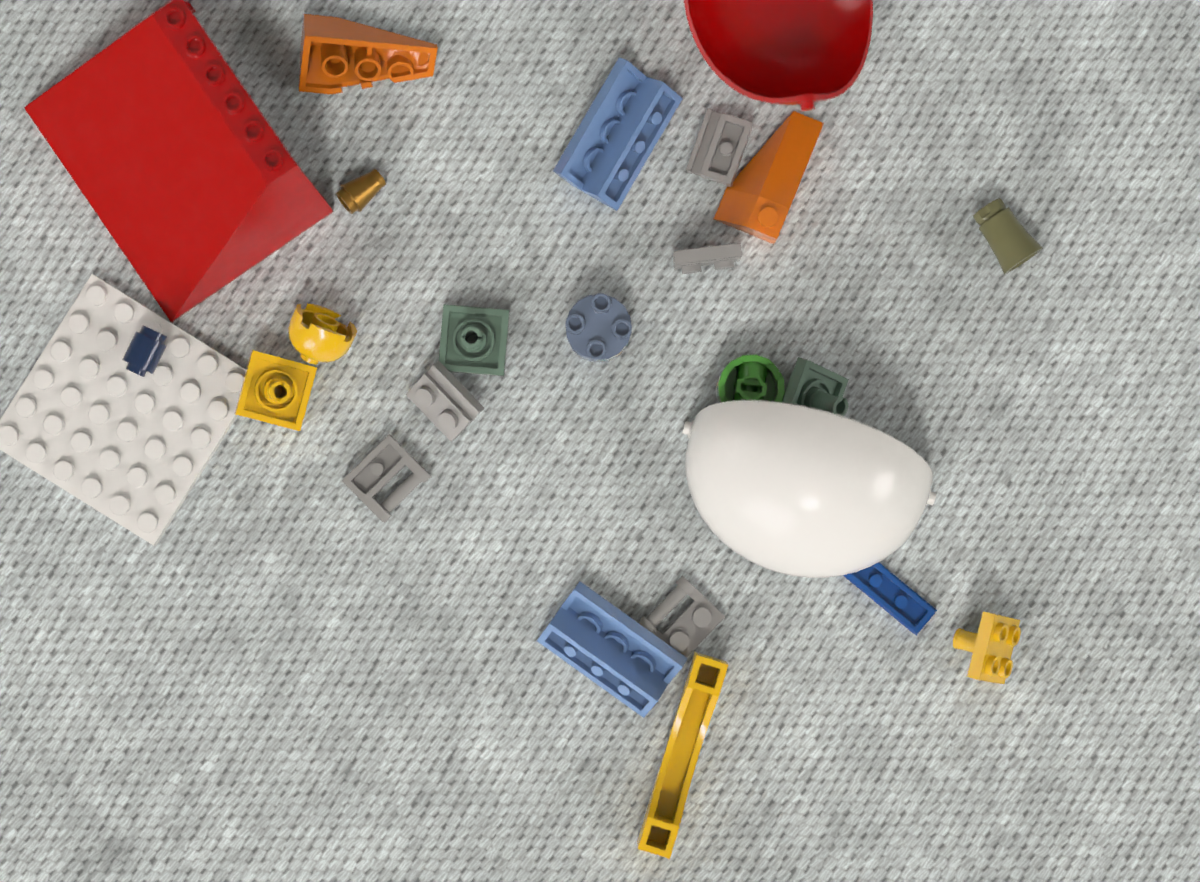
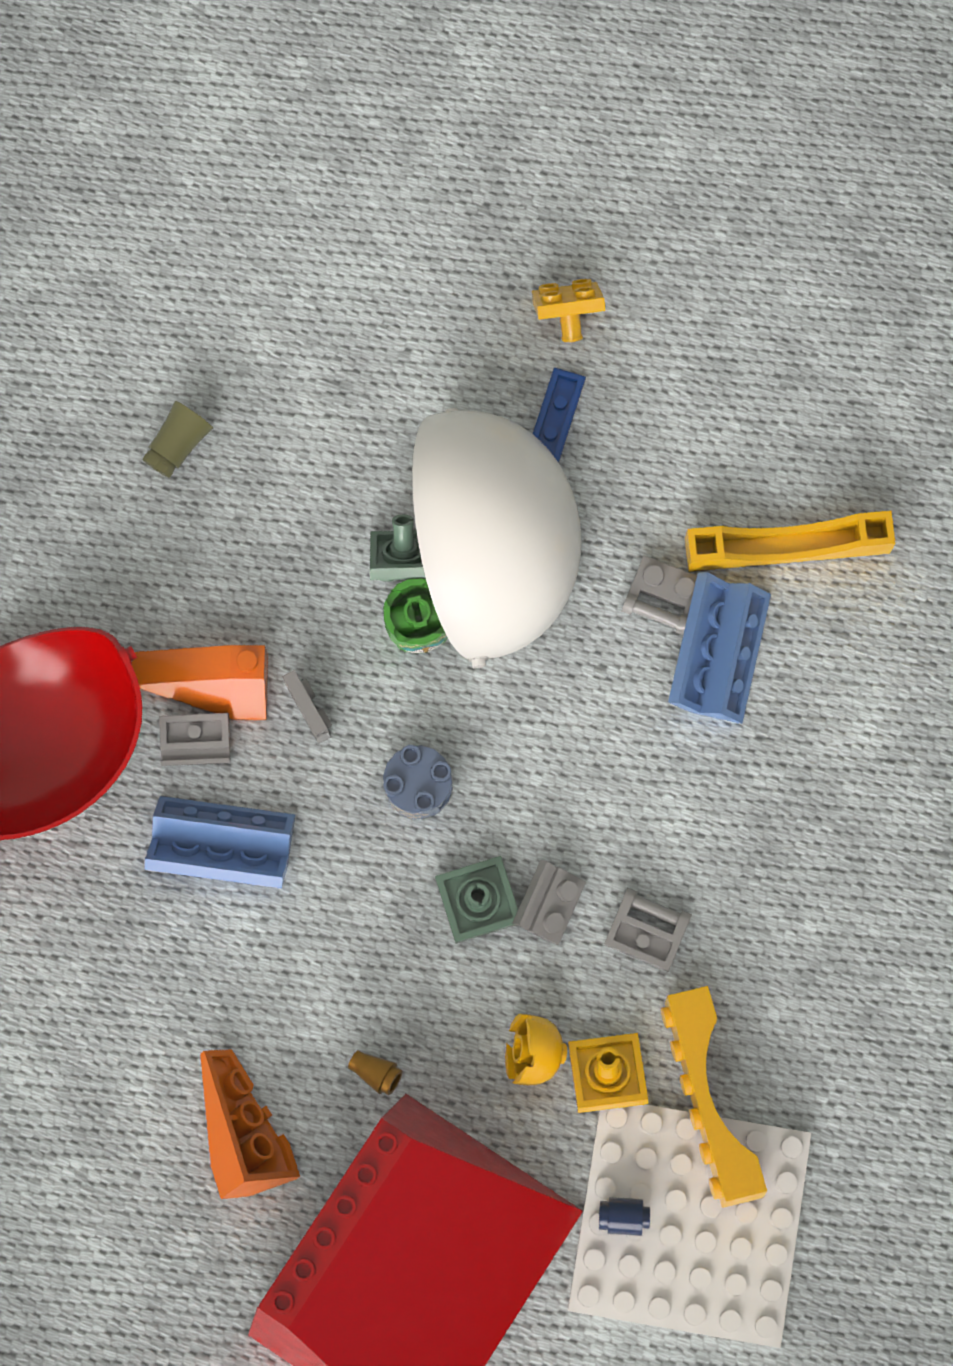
camera: 115 degrees left, 10 degrees down
(142, 462) = (734, 1167): none -> yellow arch

